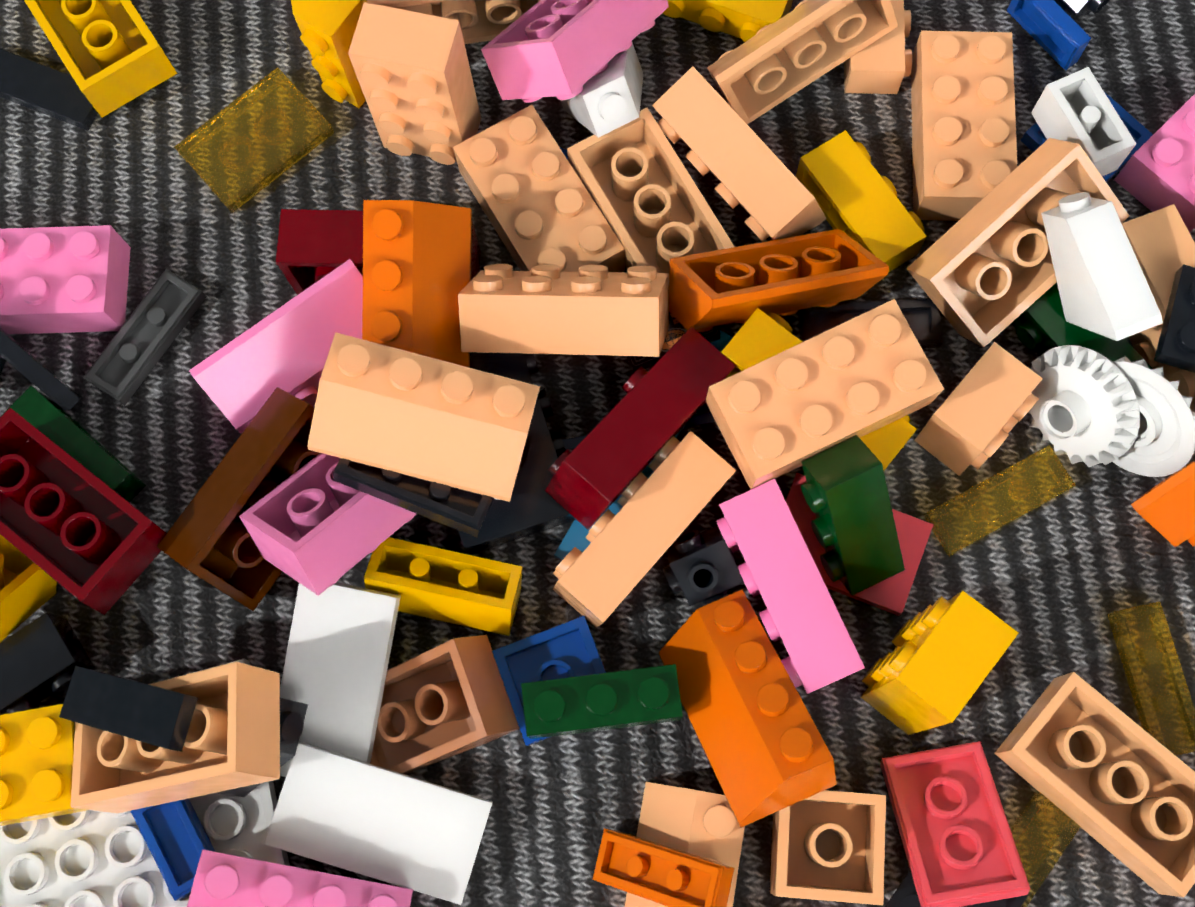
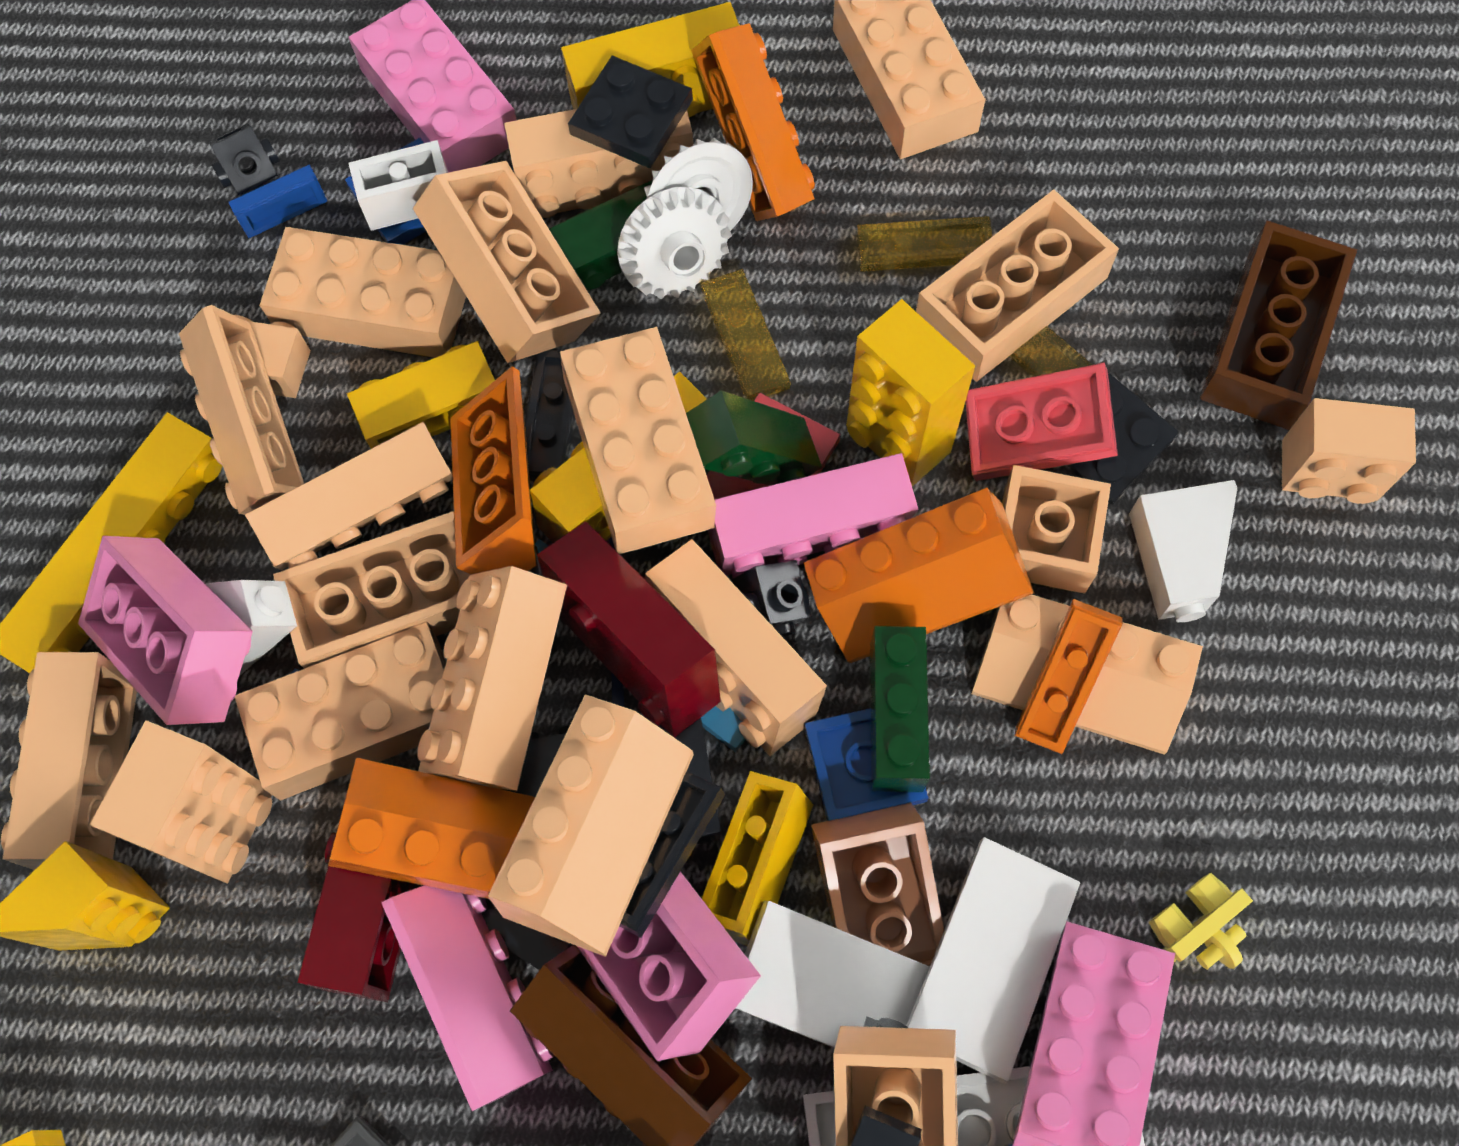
camera: 85 degrees left, 5 degrees down
(254, 139) = (177, 1037): clear yellow tile -> none
(980, 411) = (657, 300): light nougat brick -> none
(1098, 269) = (557, 191): white slope -> none

